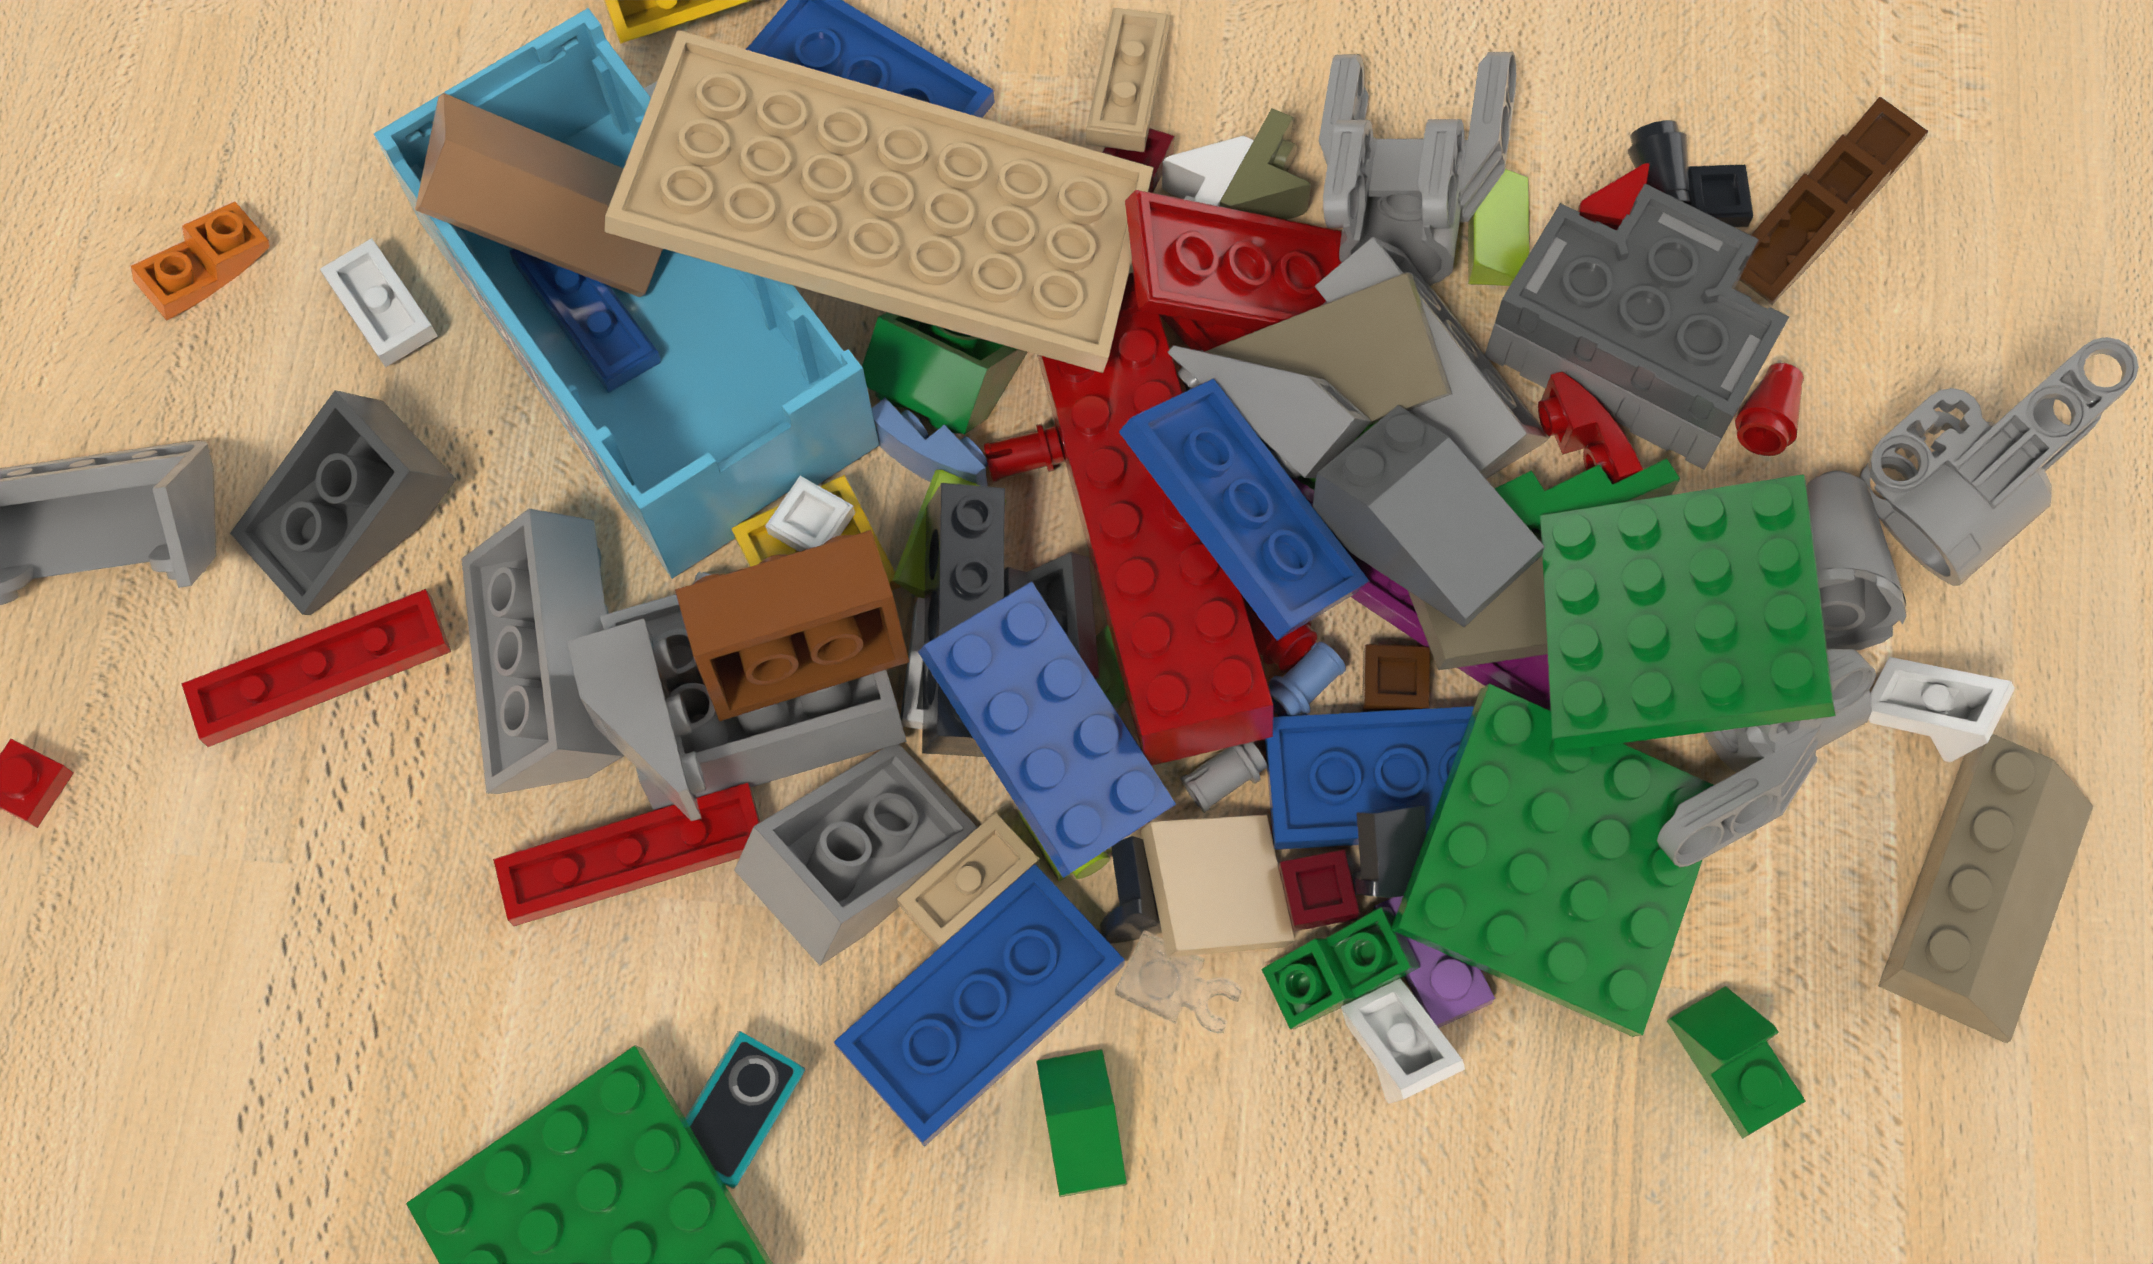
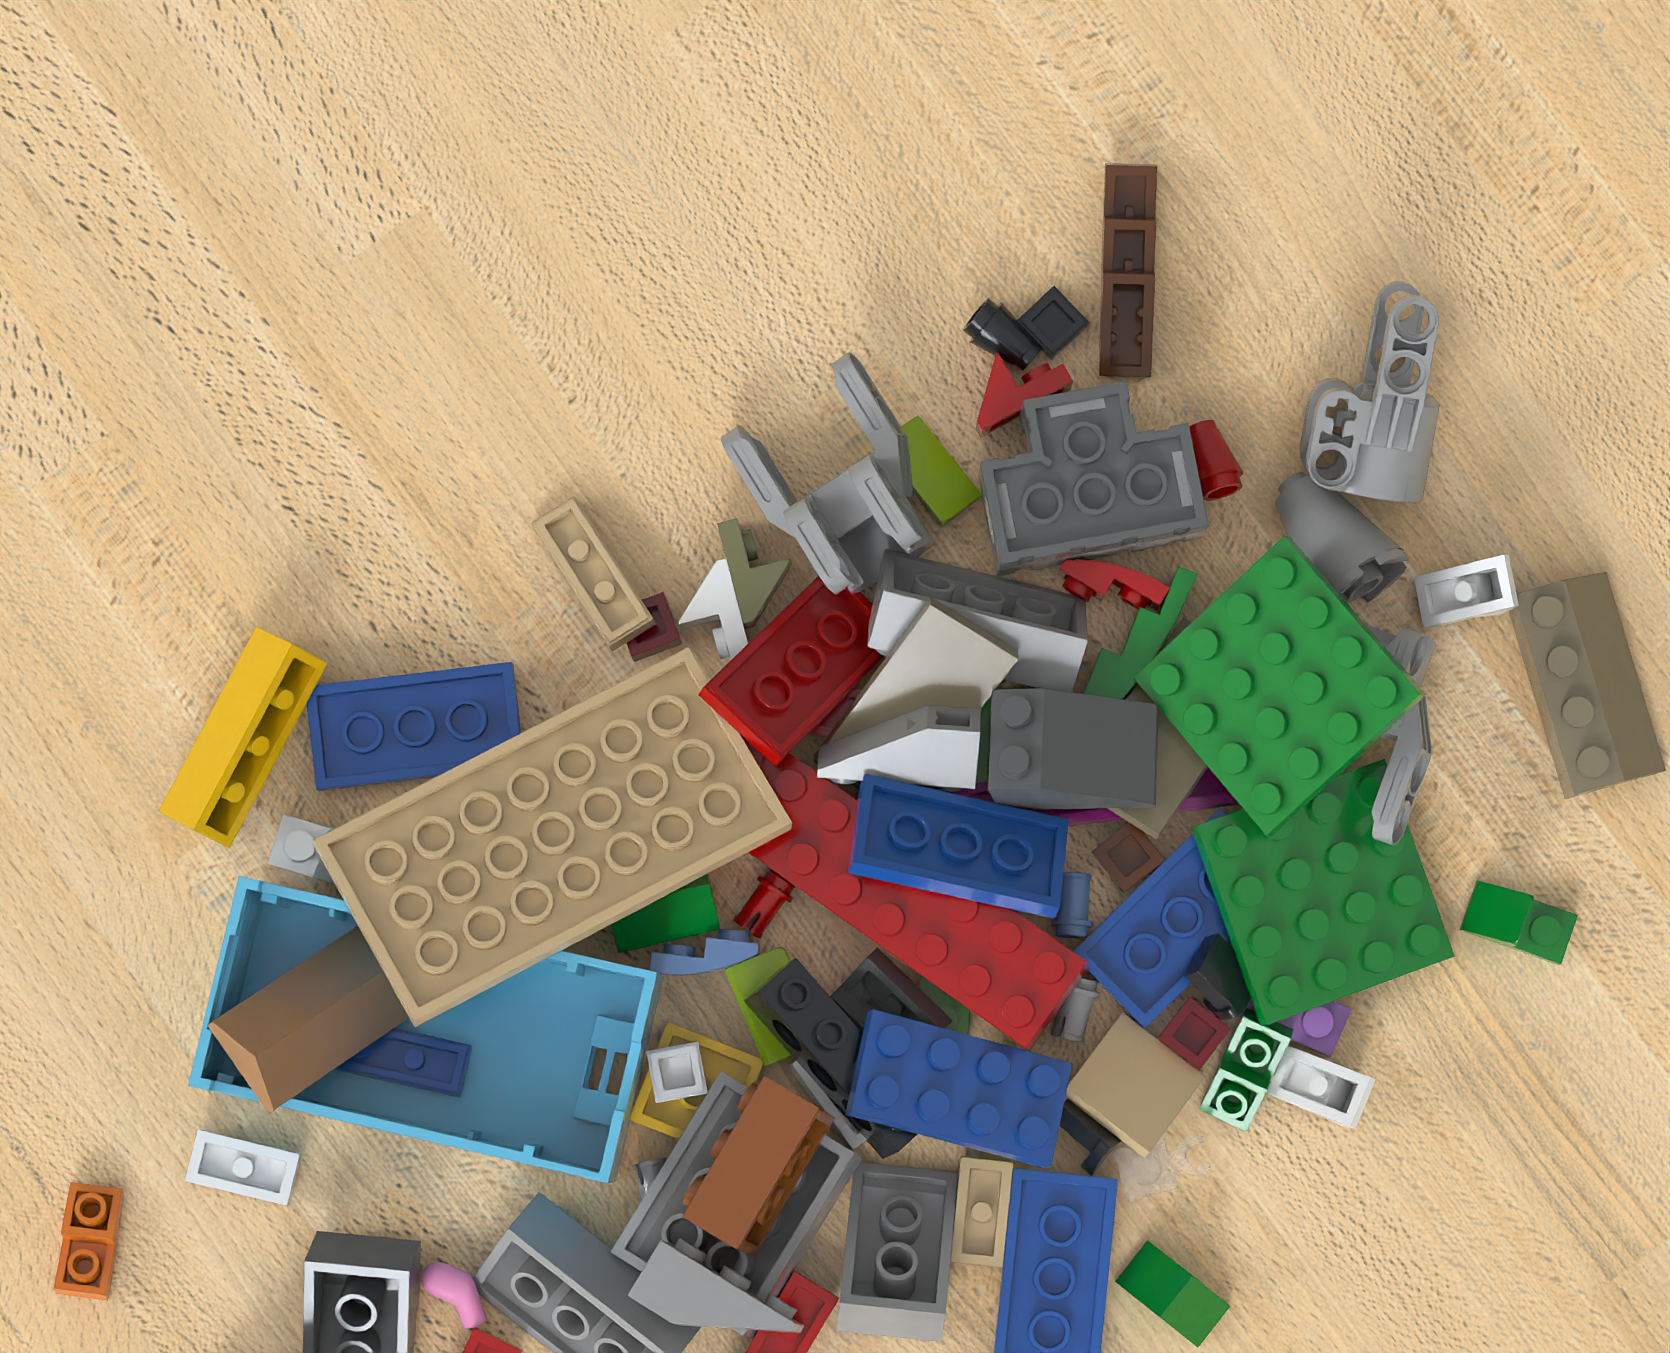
camera: 40 degrees left, 15 degrees up
(447, 548) = (456, 1288): none -> bright pink arm

